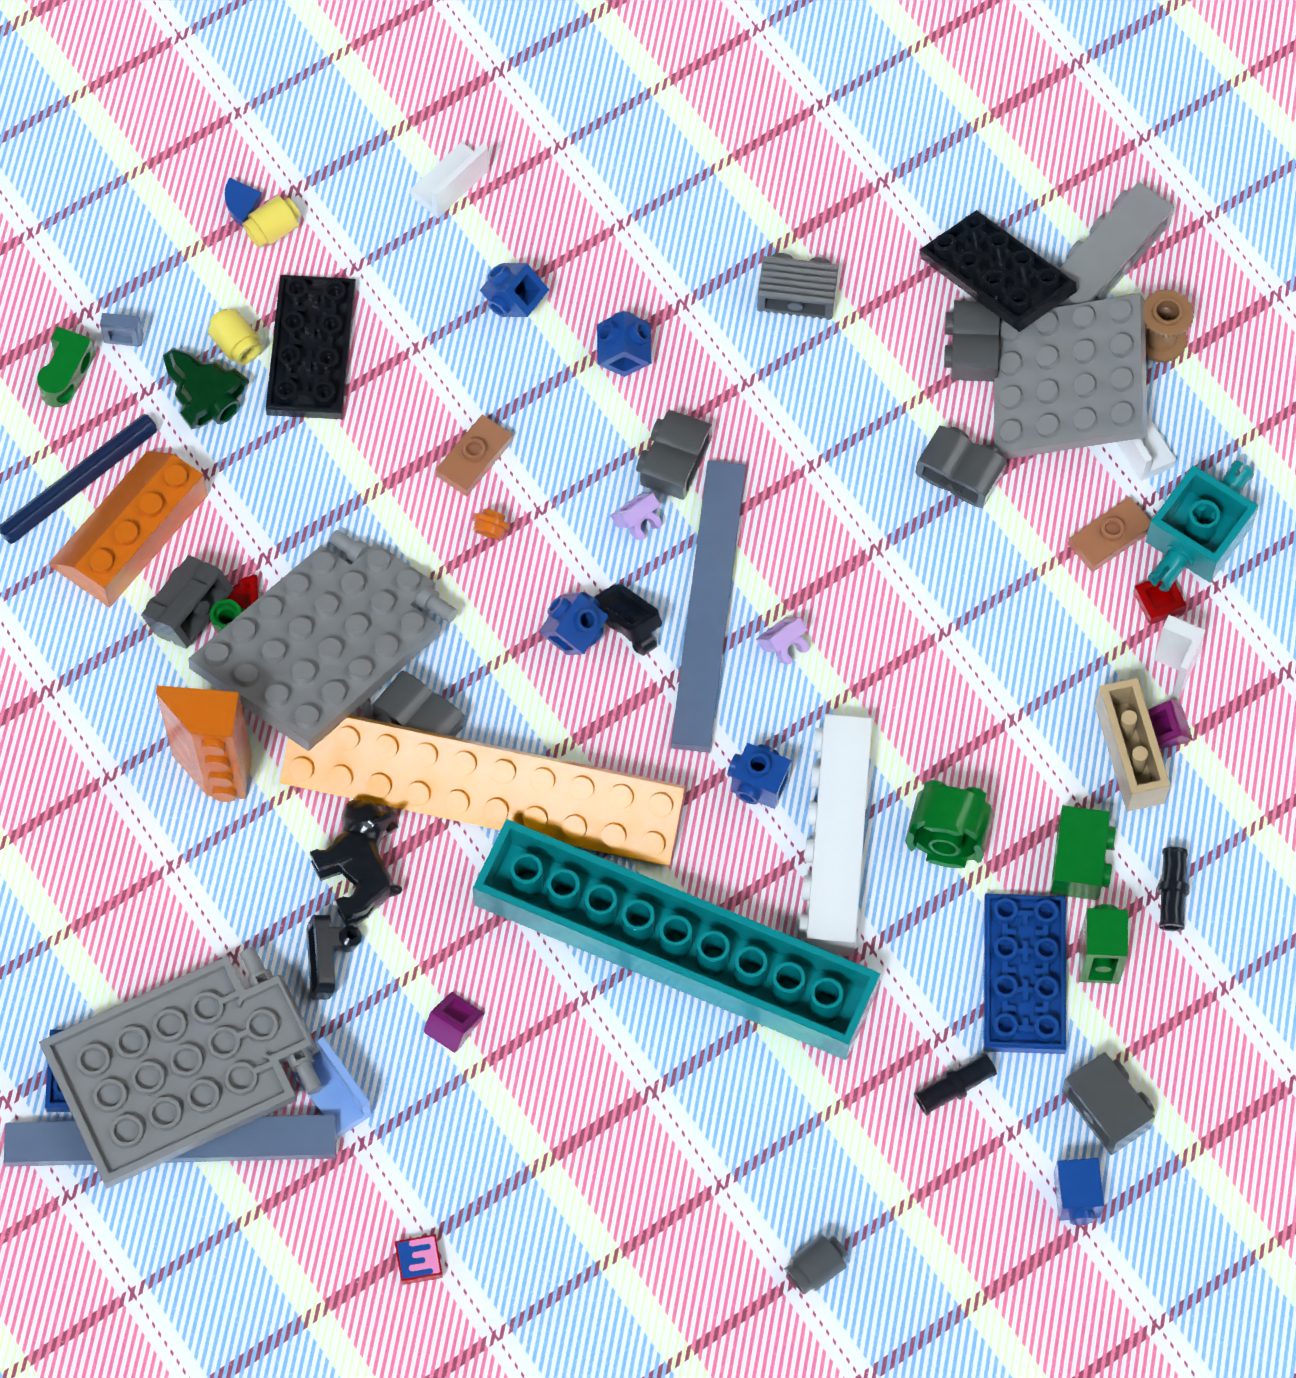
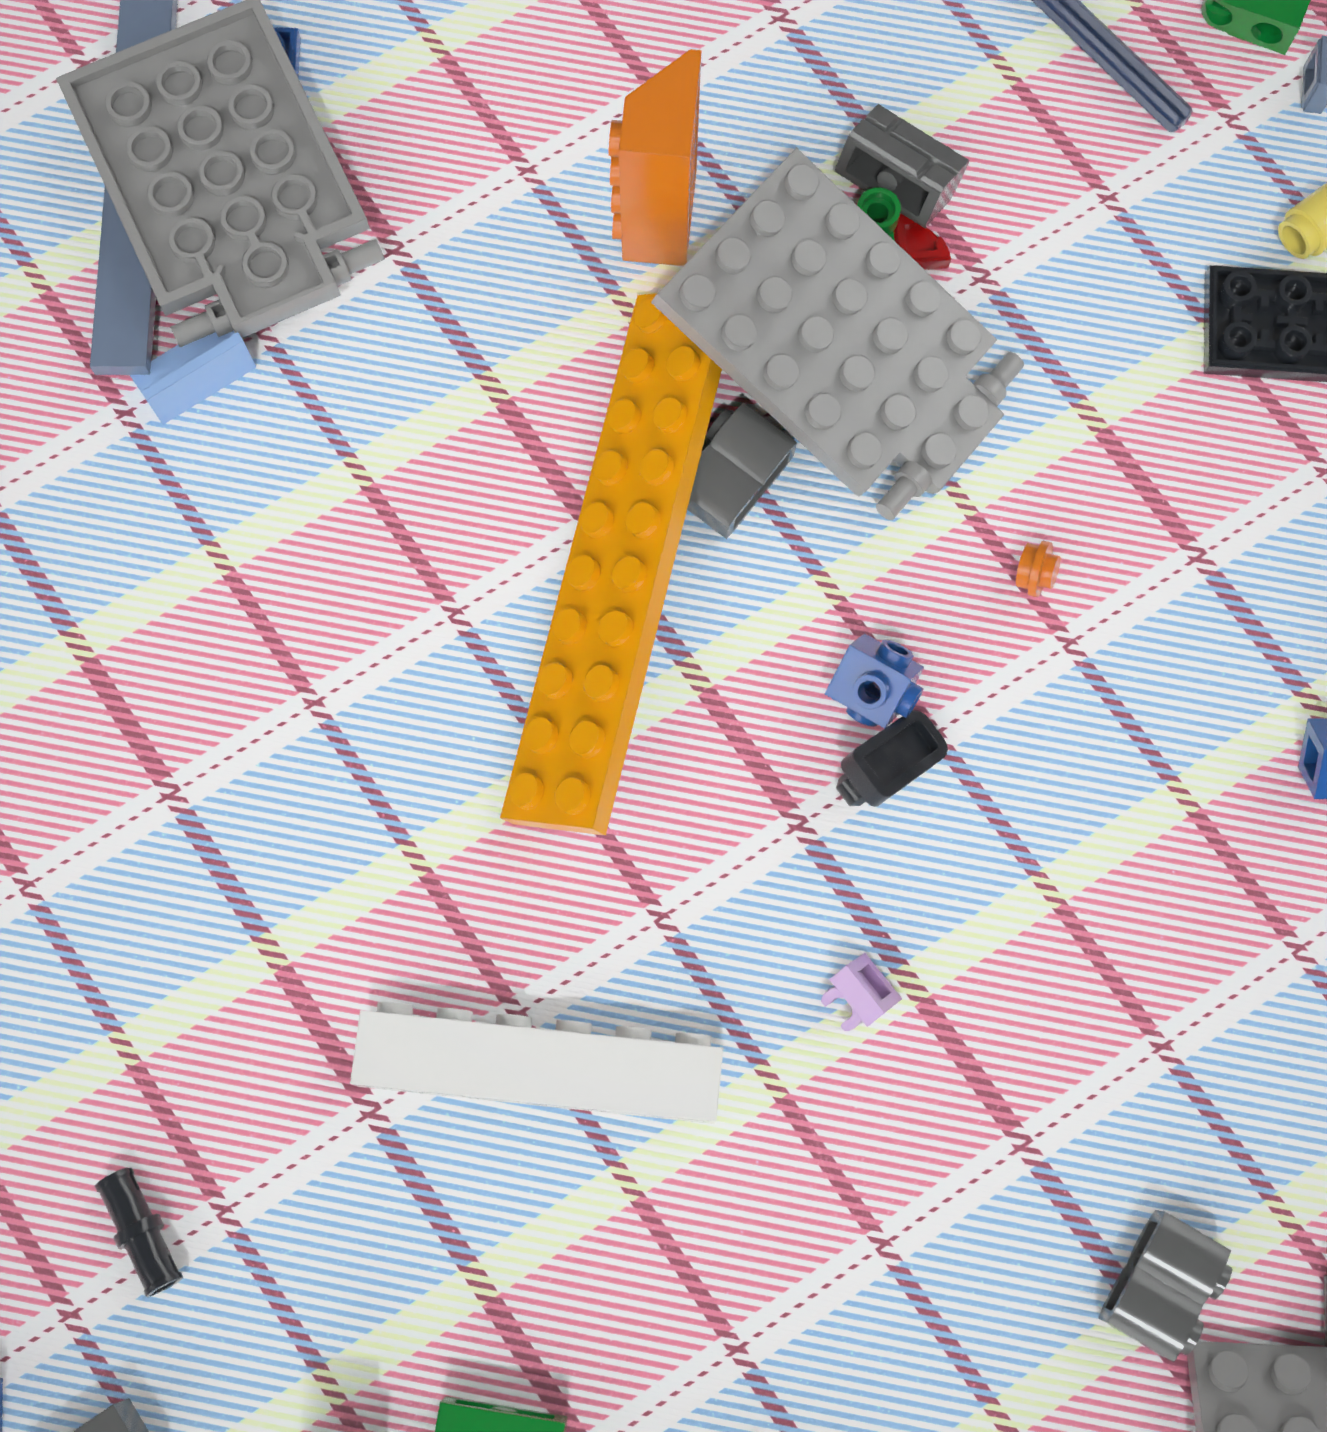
camera: 90 degrees right, 10 degrees up
(131, 525) = (1016, 100): orange slope -> none
(204, 389) = (1235, 184): dark green rock -> none
(320, 947) = (398, 347): black piece -> none
(358, 860) = (515, 393): black animal -> none
(452, 1021) = (286, 526): magenta slope -> none
(474, 455) = (1153, 549): nougat plate -> none
(635, 512) = (1064, 774): lavender tile -> none
(675, 454) = (1165, 835): dark grey brick -> none
(676, 939) = (368, 827): teal brick -> none
(708, 607) = (921, 883): sand blue tile -> none
(759, 775) = (626, 969): blue brick -> none
(950, 824) = (539, 1238): green brick -> none
(1024, 974) = (313, 1349): blue tile -> none

